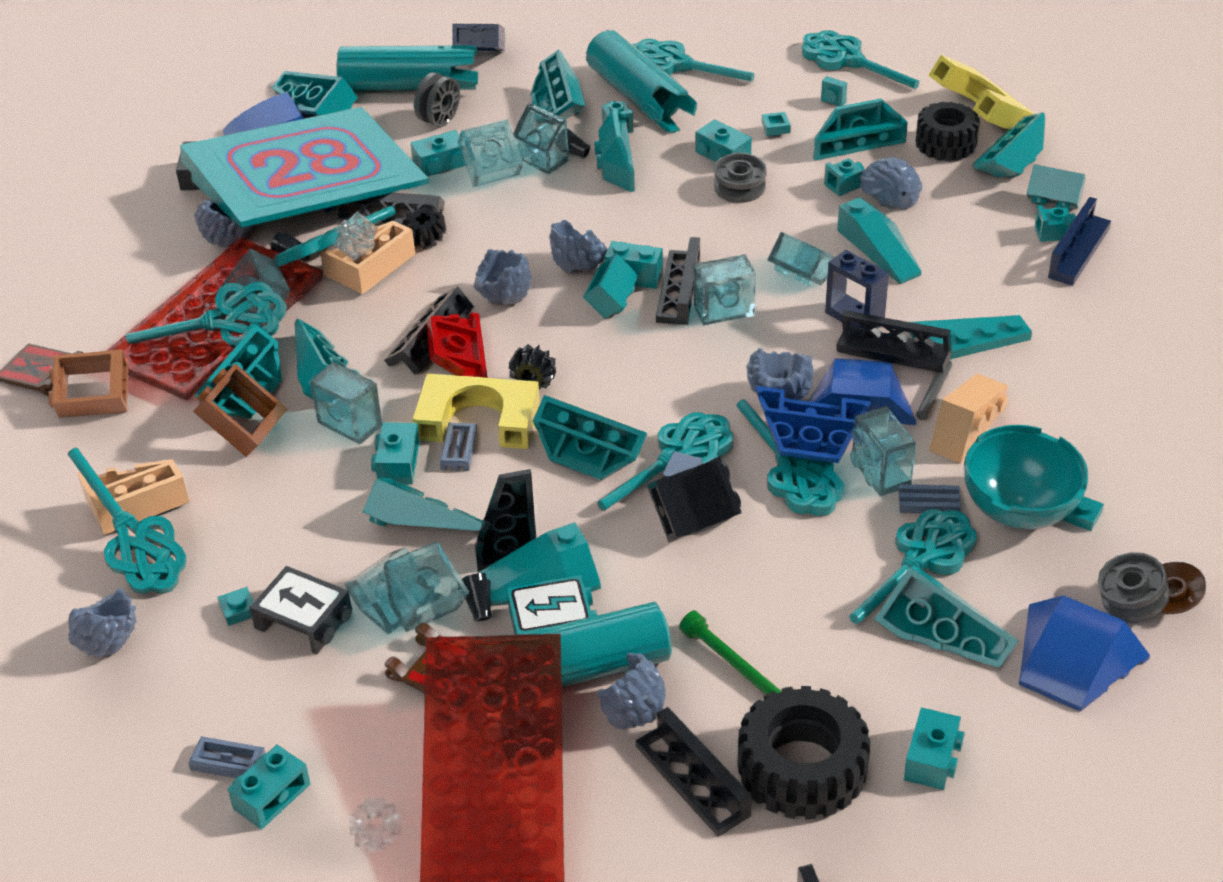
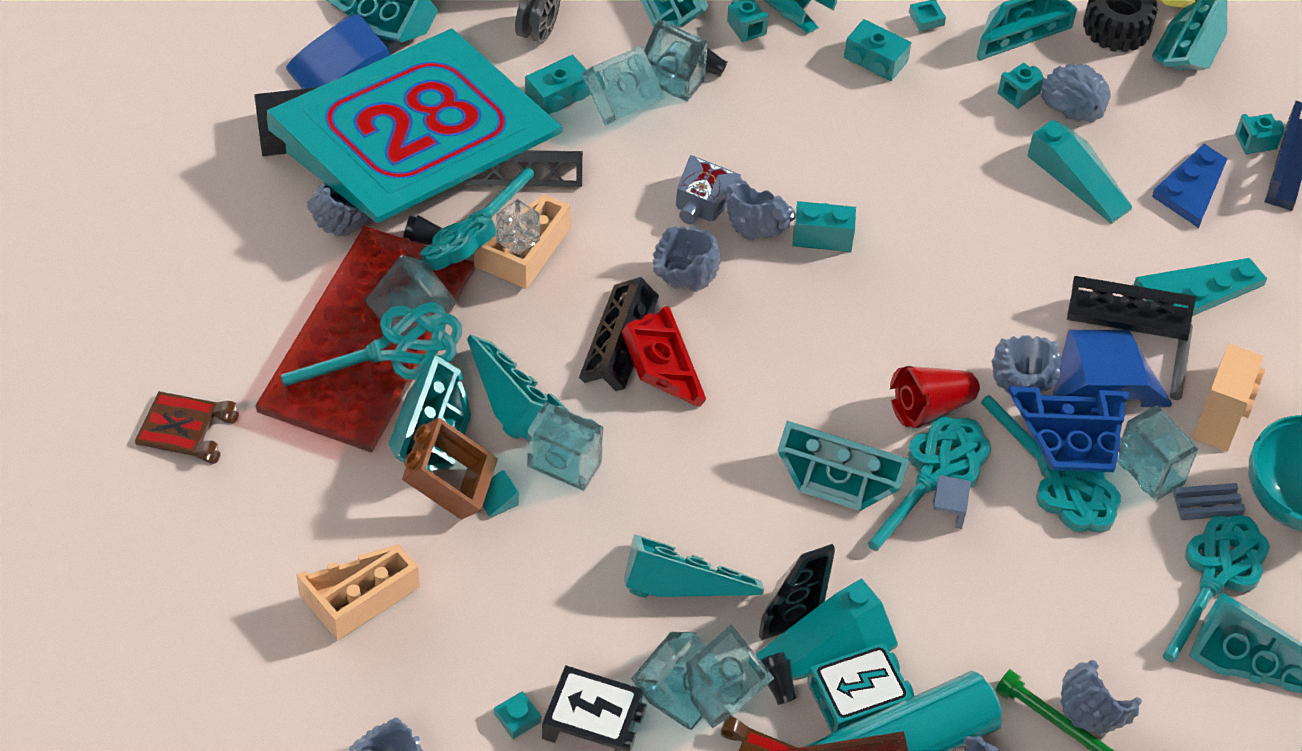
camera: 15 degrees left, 10 degrees up
(85, 363) = (254, 420): nougat window -> none
(142, 543) = (370, 632): teal piece -> none
(282, 439) = (500, 495): none -> teal slope
(396, 451) = (634, 502): teal brick -> none
(426, 225) = (584, 187): black gear -> none
(448, 394) = (740, 418): light yellow arch -> none
(456, 461) = (697, 505): sand blue tile -> none
(532, 232) = (703, 190): none -> sand blue torso
(532, 365) = (754, 378): black gear -> none
(611, 286) = (808, 259): teal brick -> none
(614, 151) = (761, 73): teal wedge -> none
(684, 287) = (889, 246): black fence -> none
(690, 390) = (930, 393): none -> red cone
(694, 498) = (975, 532): black panel -> none
(724, 289) = (936, 256): clear light blue brick -> none
(739, 177) = (907, 95): dark grey wheel -> none
(762, 643) = (1091, 704): none -> sand blue hair
(800, 258) = (1006, 205): clear light blue slope -> none
(869, 276) = (1067, 263): dark blue window -> none
(982, 258) = (1192, 184): none -> blue wing
(1055, 187) = (1253, 85): teal brick -> none

